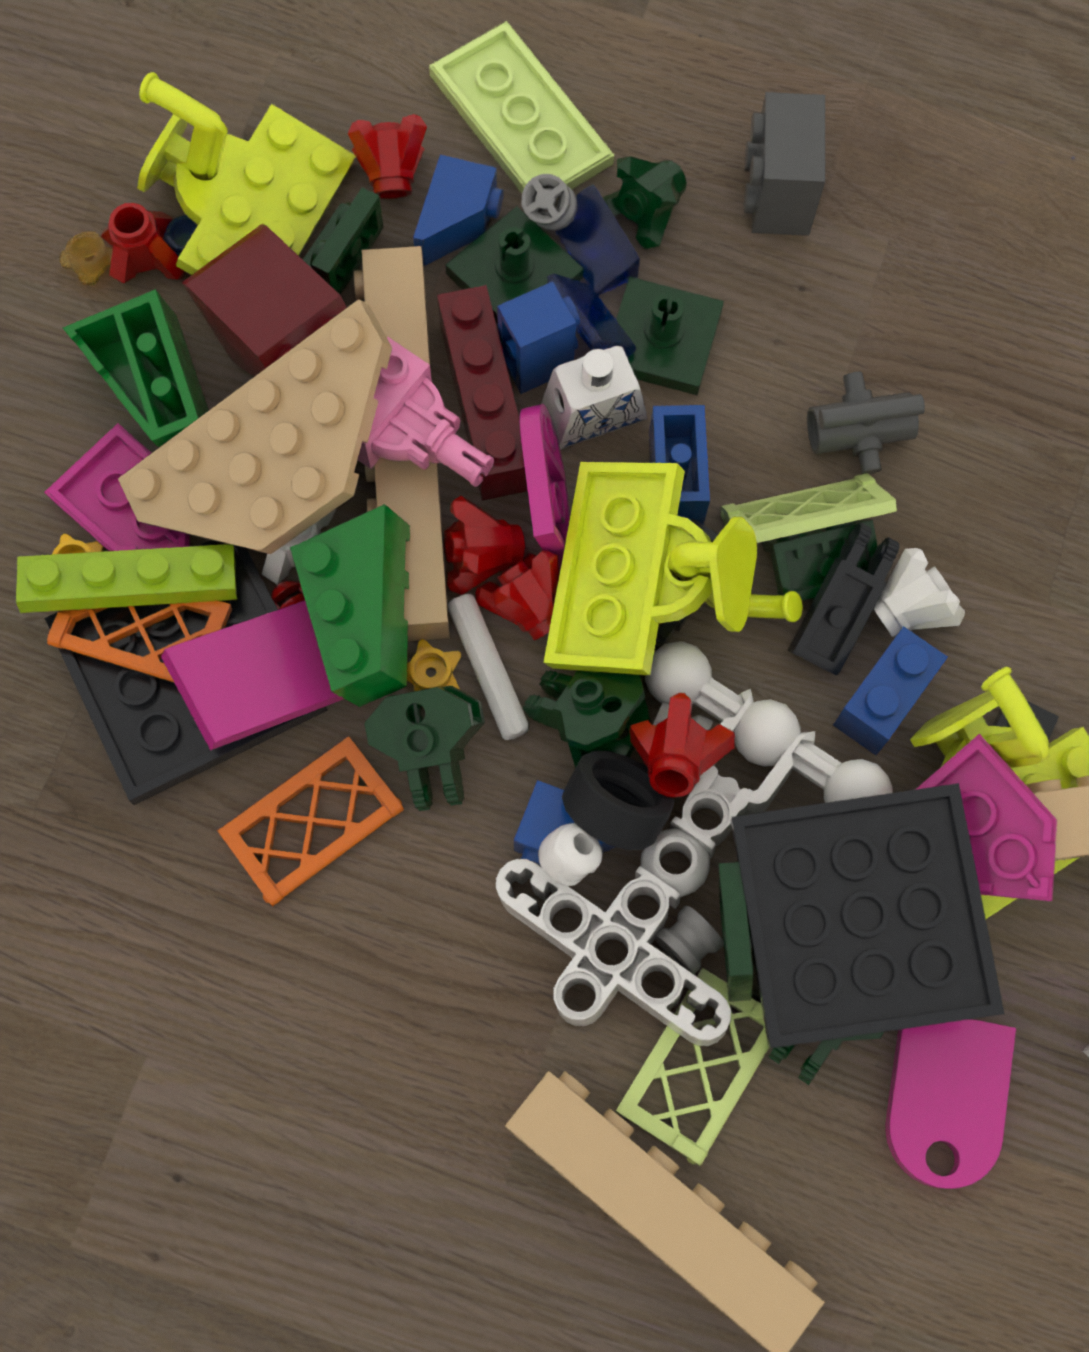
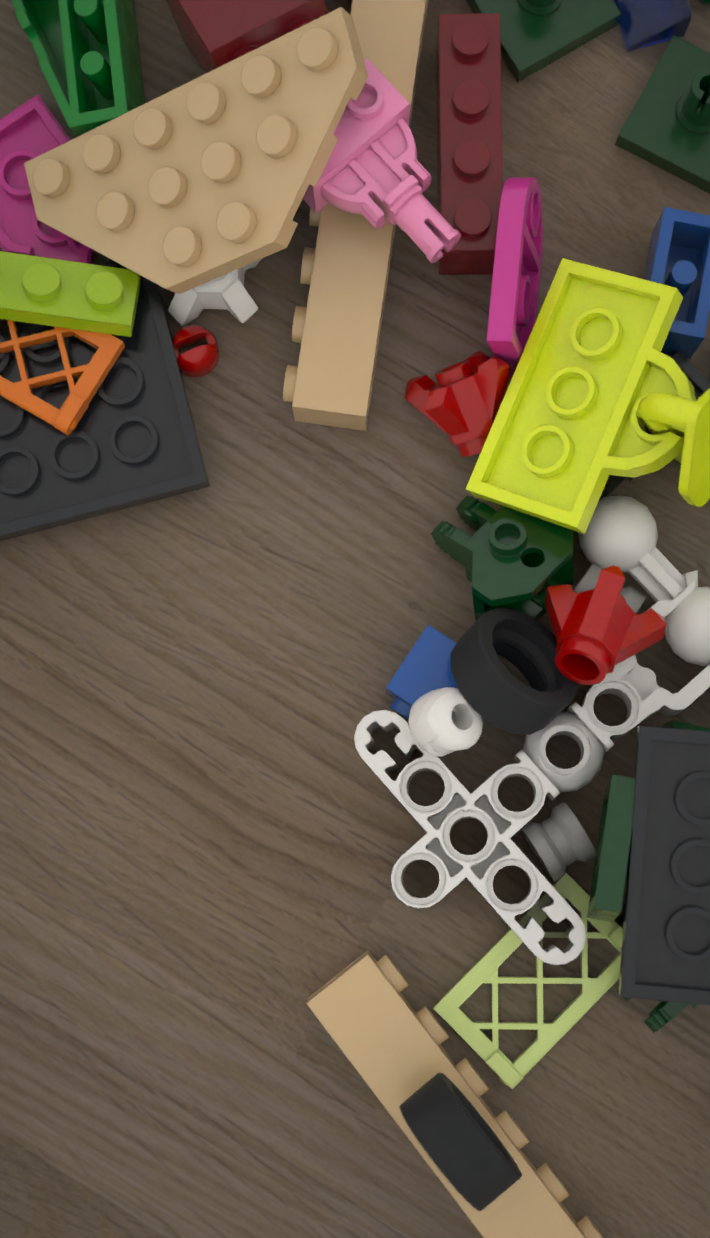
camera: 20 degrees right, 10 degrees up
(251, 675) = (164, 427): dark pink tile -> none
(269, 808) = (123, 583): orange window -> none
(356, 603) = (265, 374): green wedge -> none
(422, 742) = (314, 549): dark green hinge -> none
(429, 657) = (332, 450): yellow plate -> none
(479, 546) = (422, 331): red rock -> none
(488, 667) = (402, 475): white axle -> none
(537, 335) = (548, 89): blue brick -> none
(596, 396) = (600, 177): white torso -> none
(597, 324) = (616, 81): clear blue slope -> none
(664, 1205) = (460, 1142): none -> black tyre

